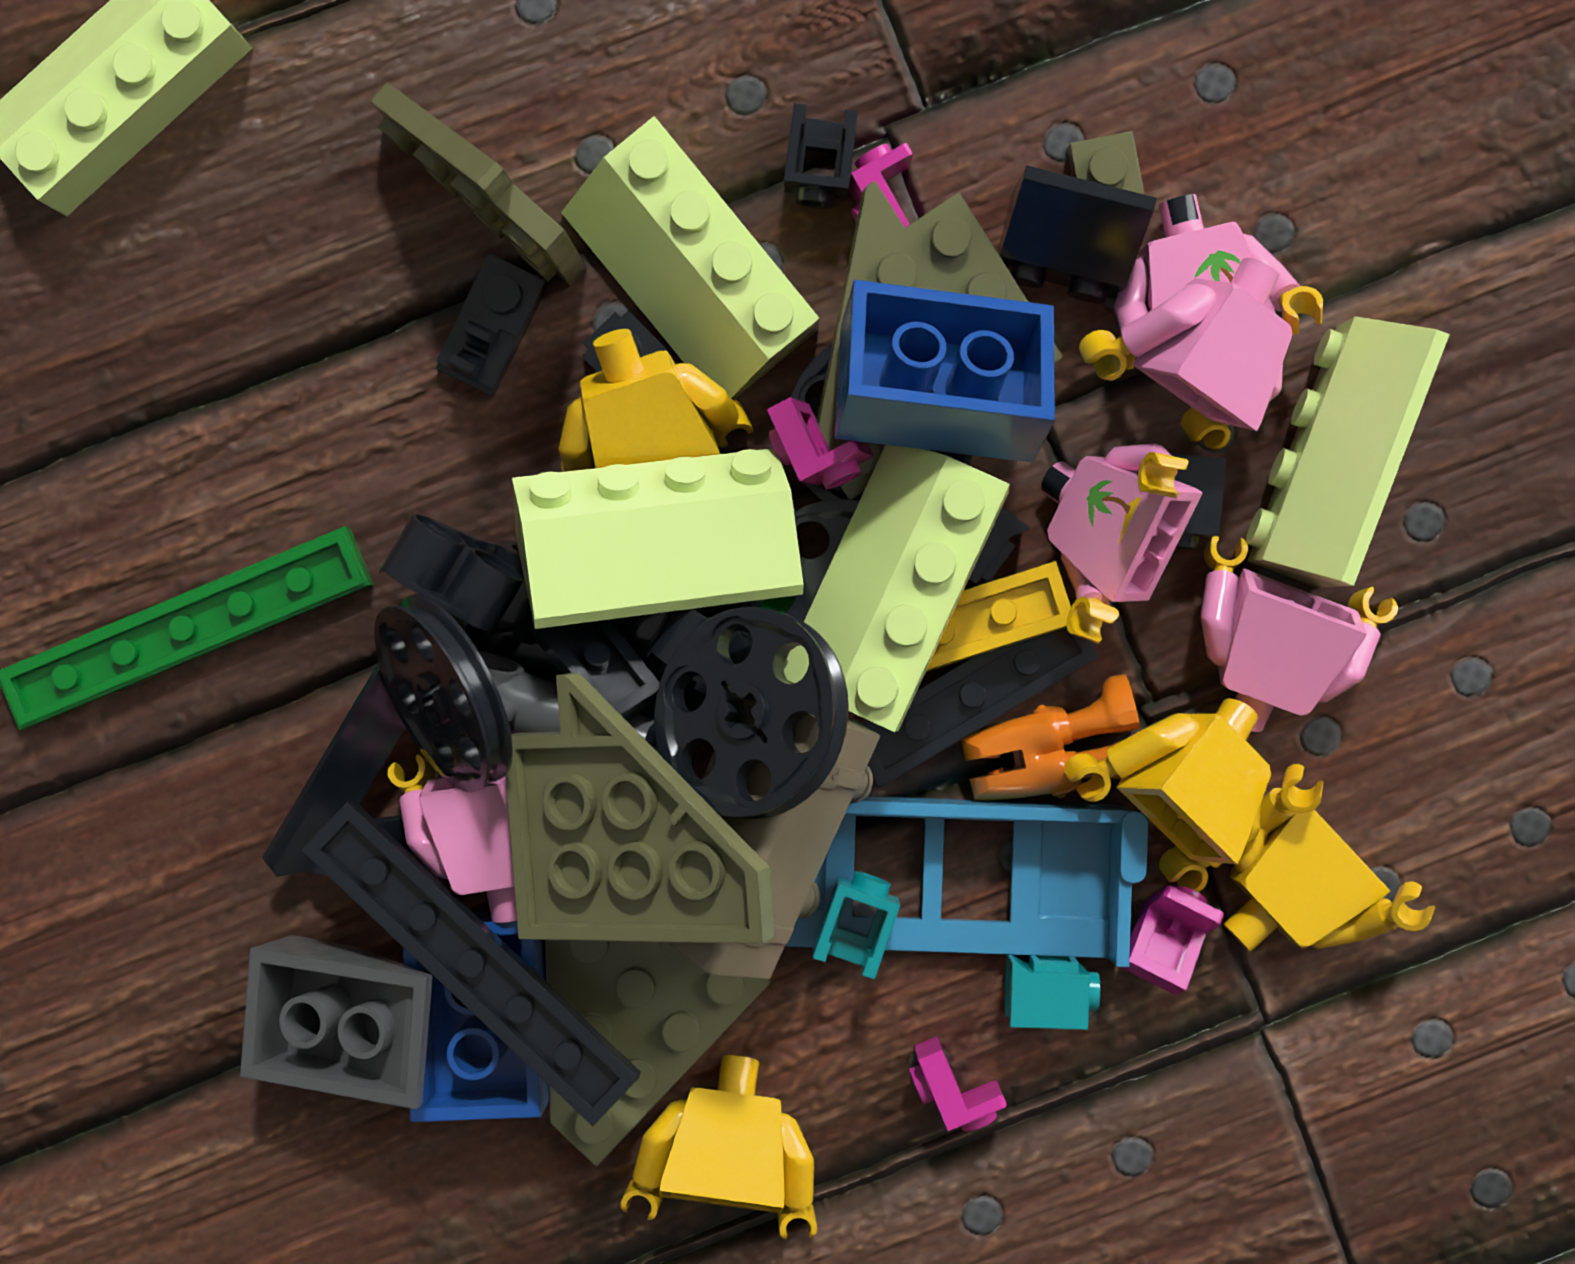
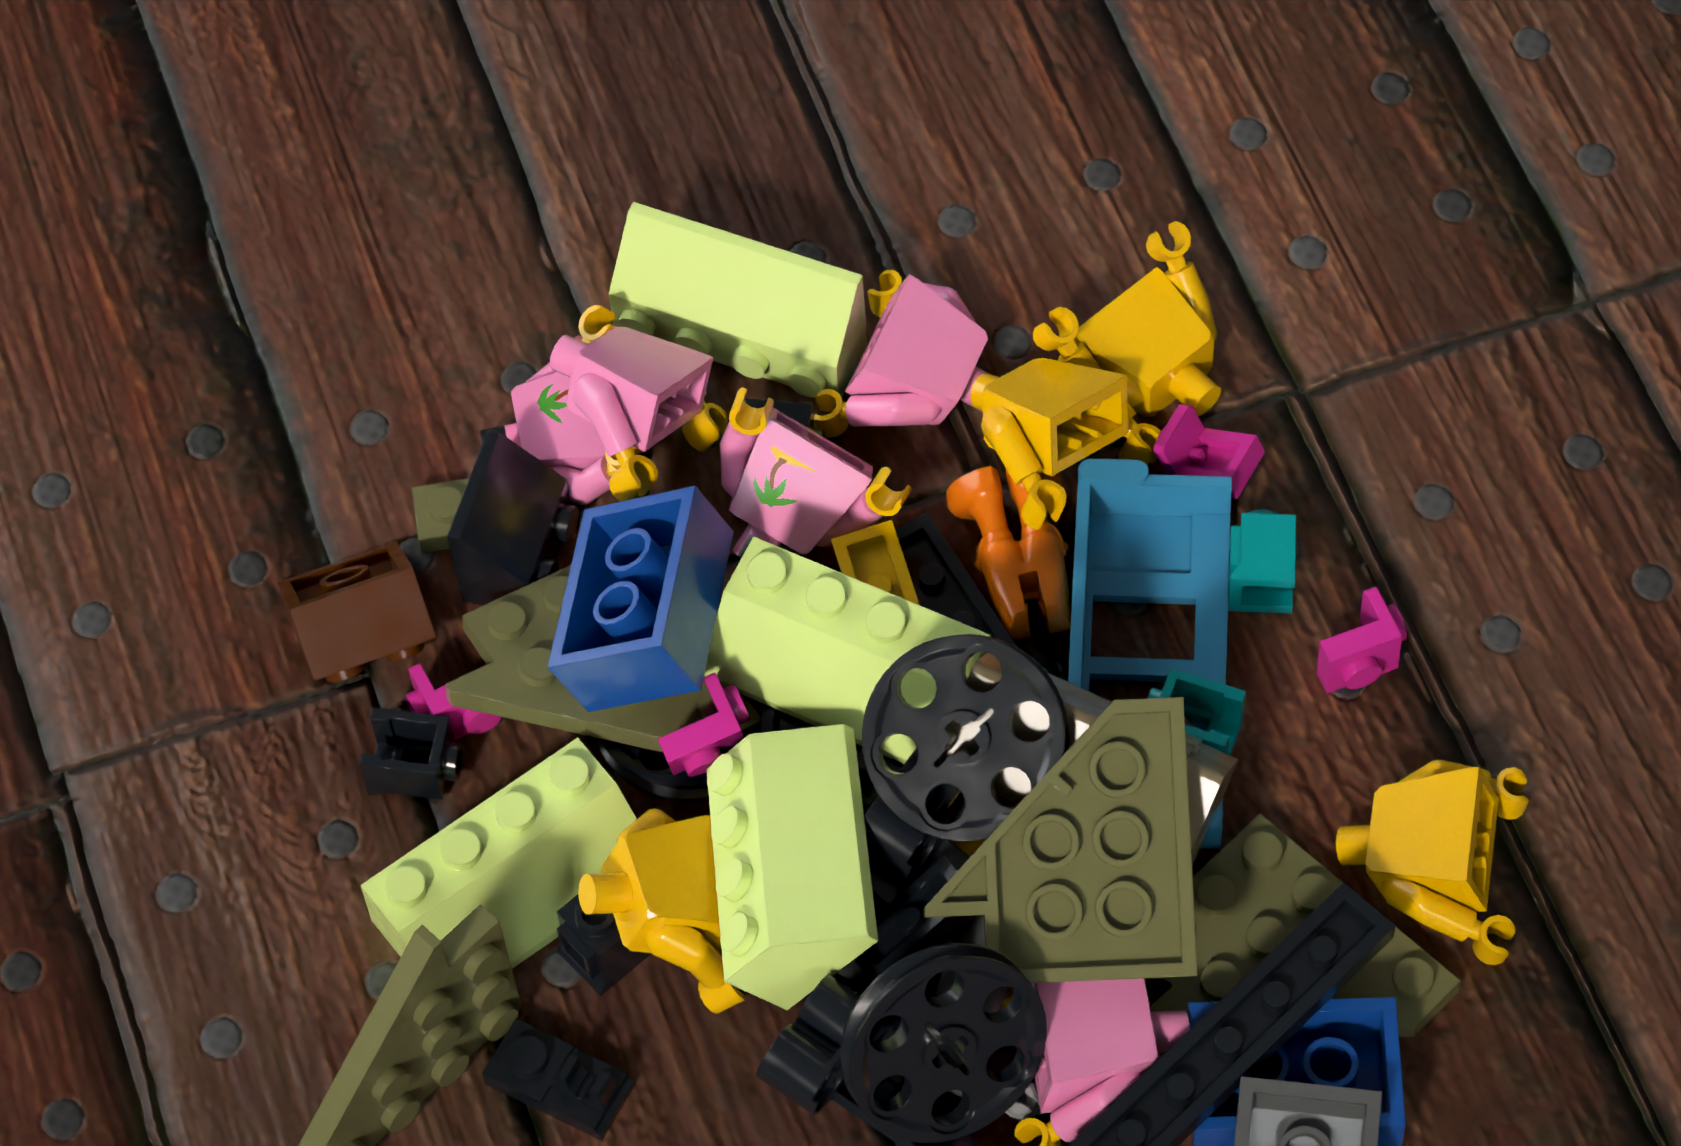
camera: 80 degrees left, 30 degrees down
(985, 84) = (357, 612): none -> reddish brown slope

